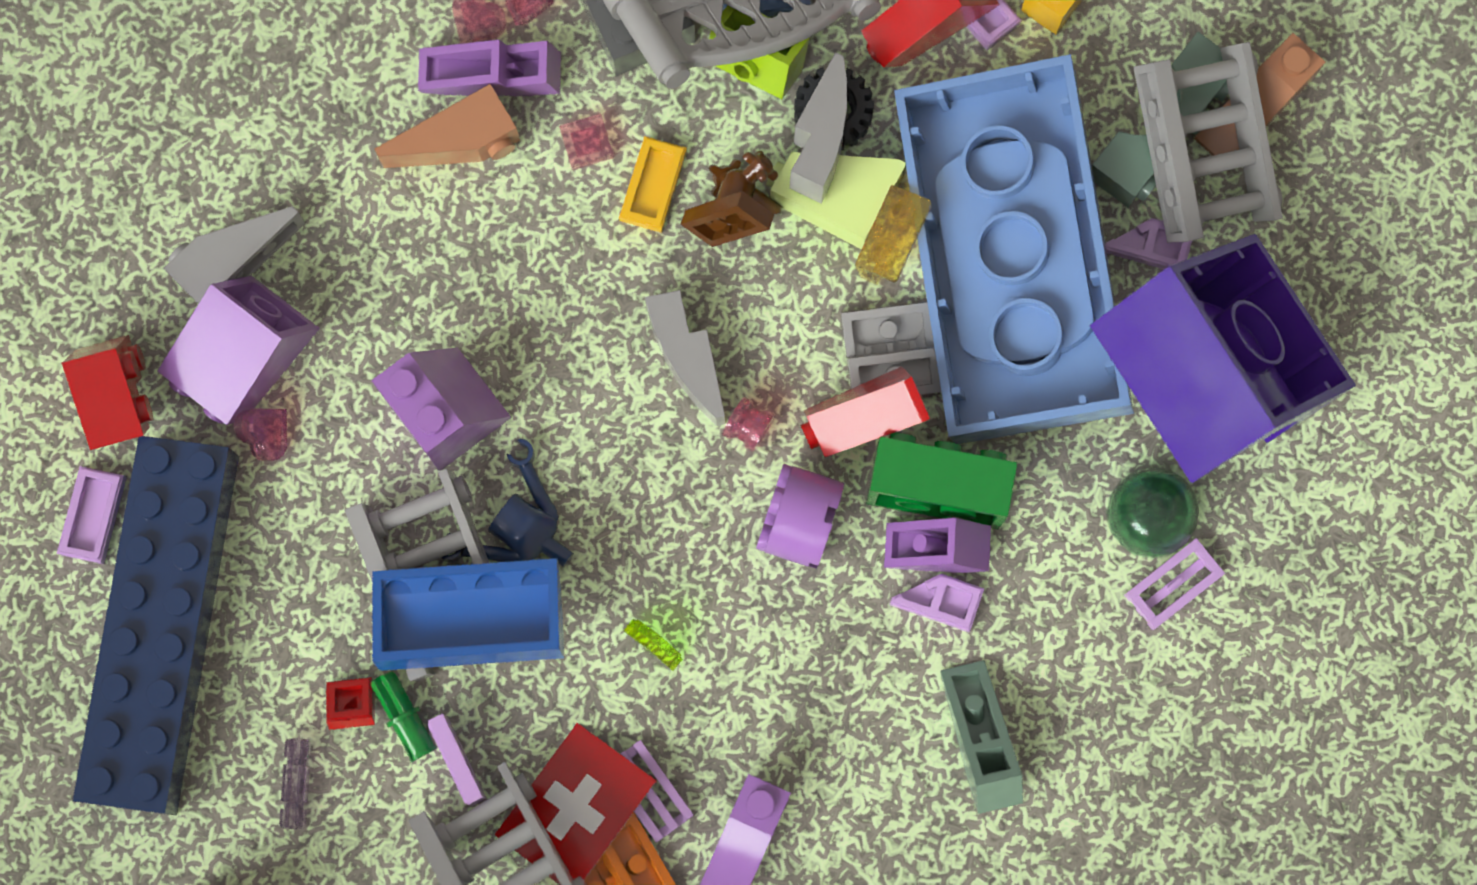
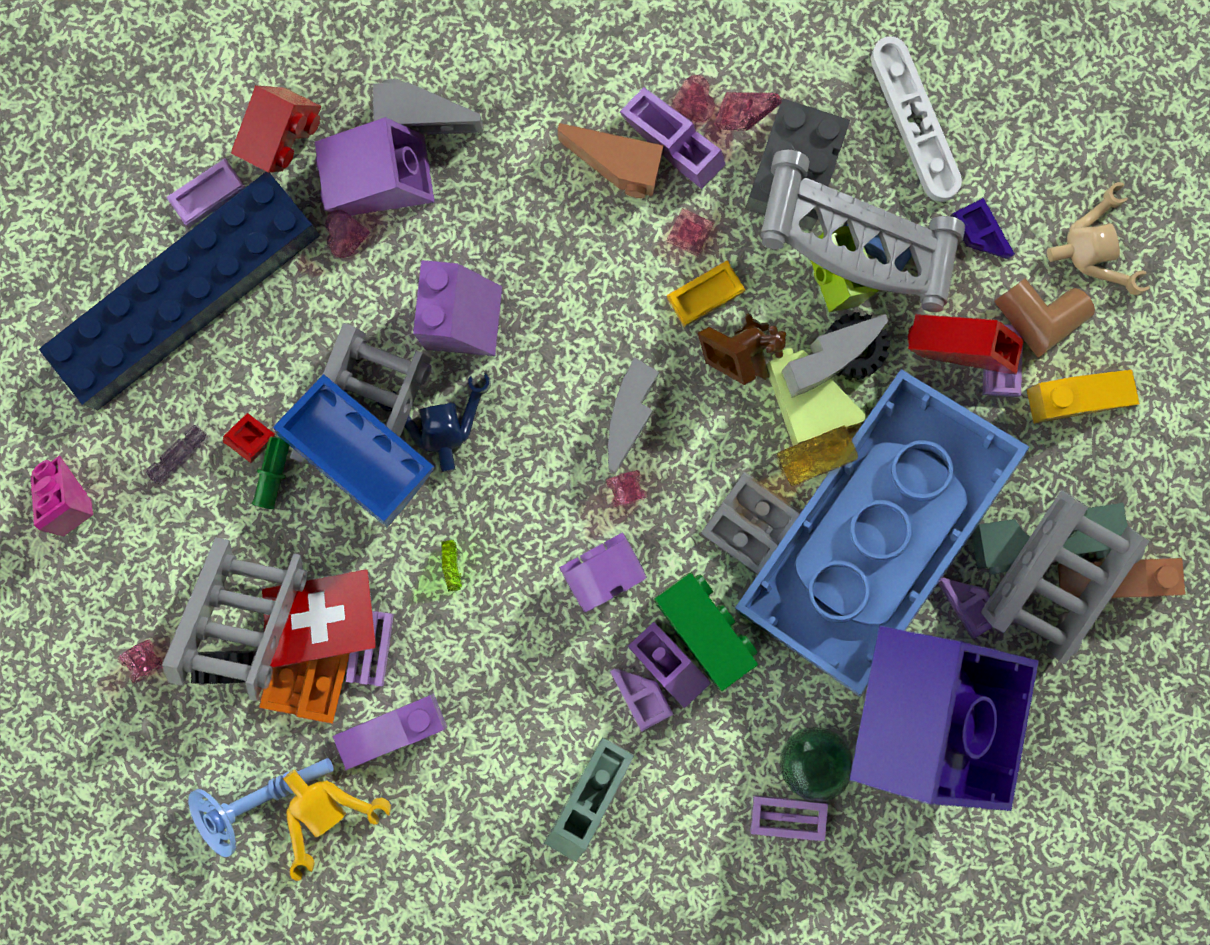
camera: 45 degrees right, 5 degrees up
(456, 760) = (276, 527): lavender tile -> none
(865, 413) = (699, 547): slope -> none

